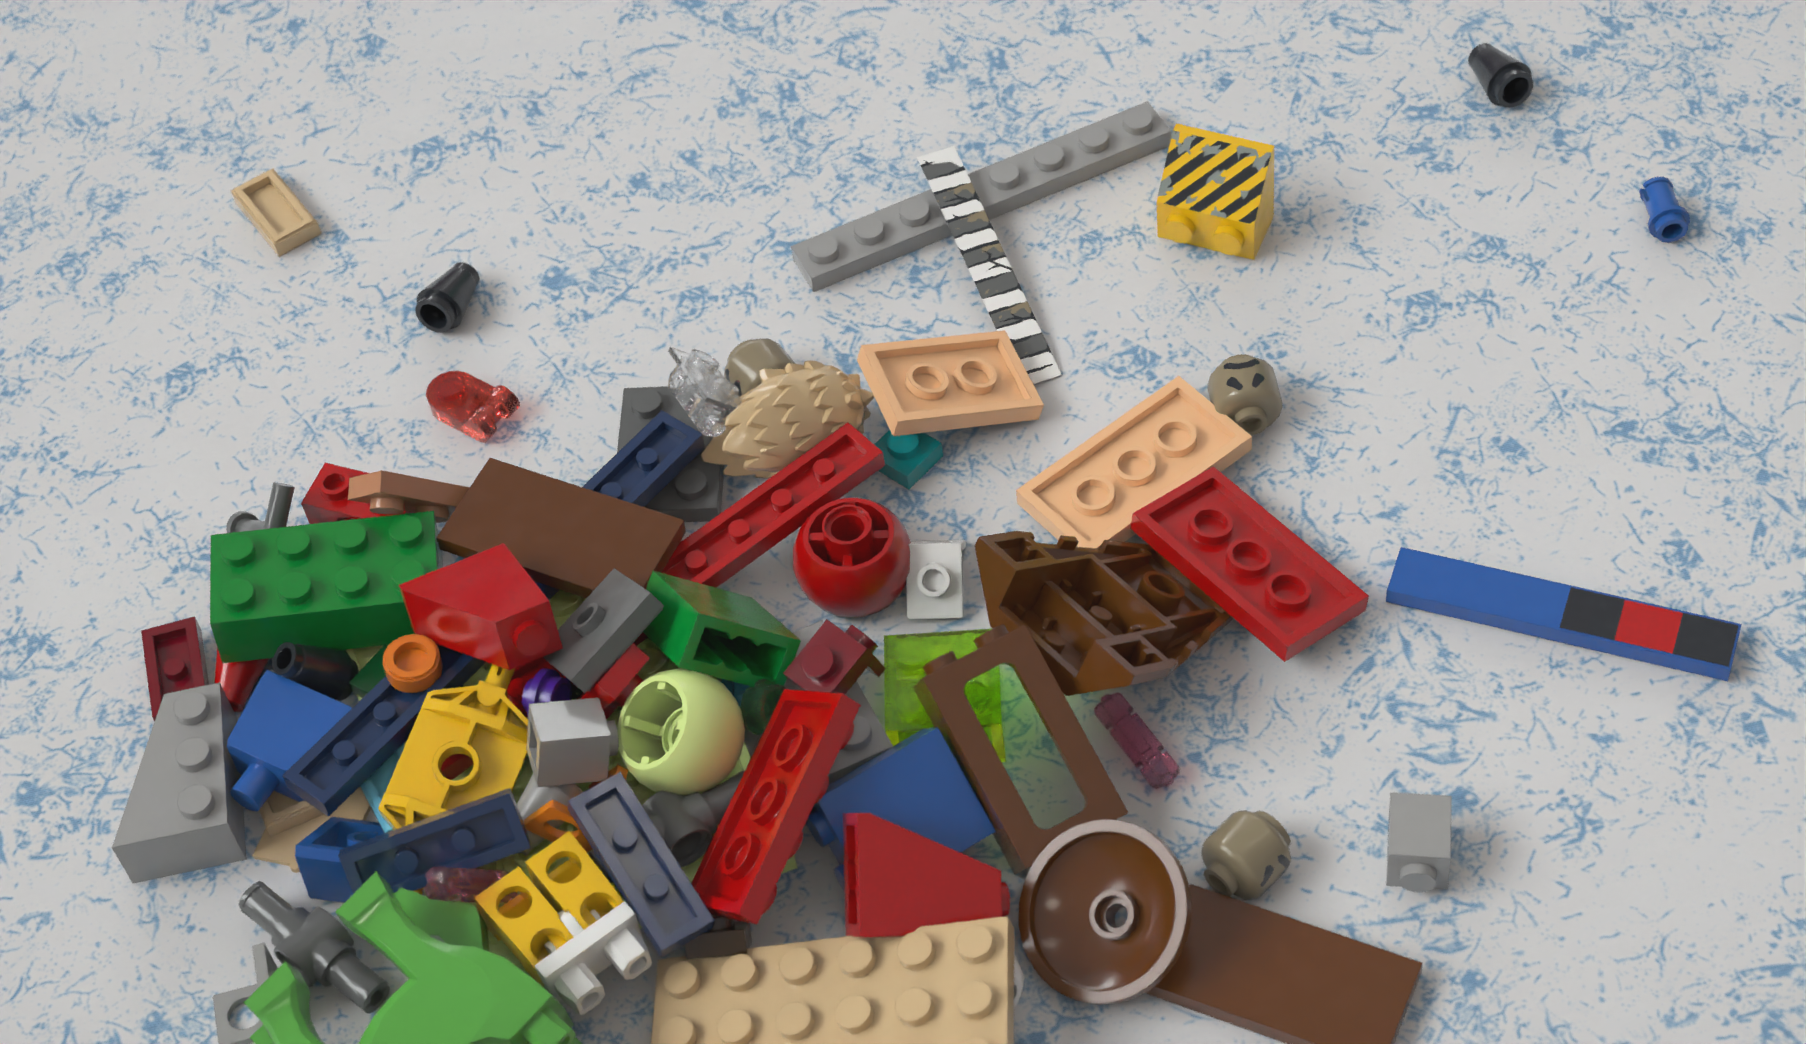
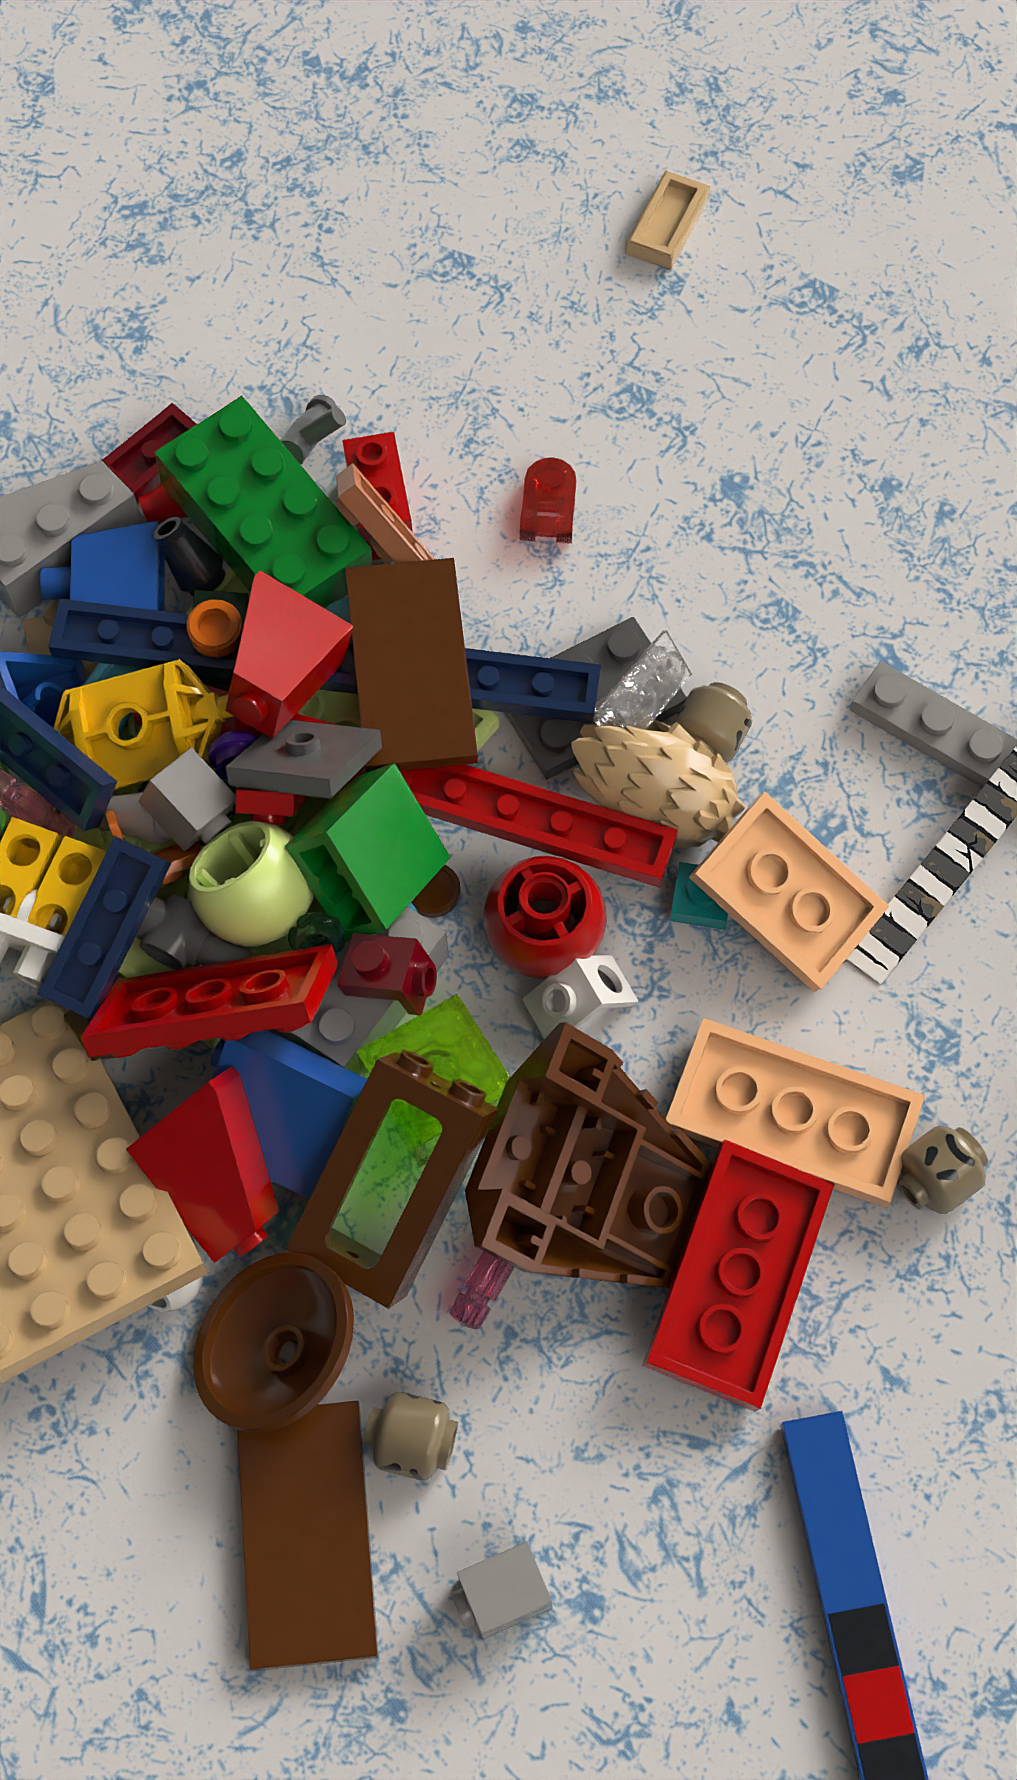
camera: 55 degrees right, 15 degrees up
(447, 298) = (650, 413): black cone -> none

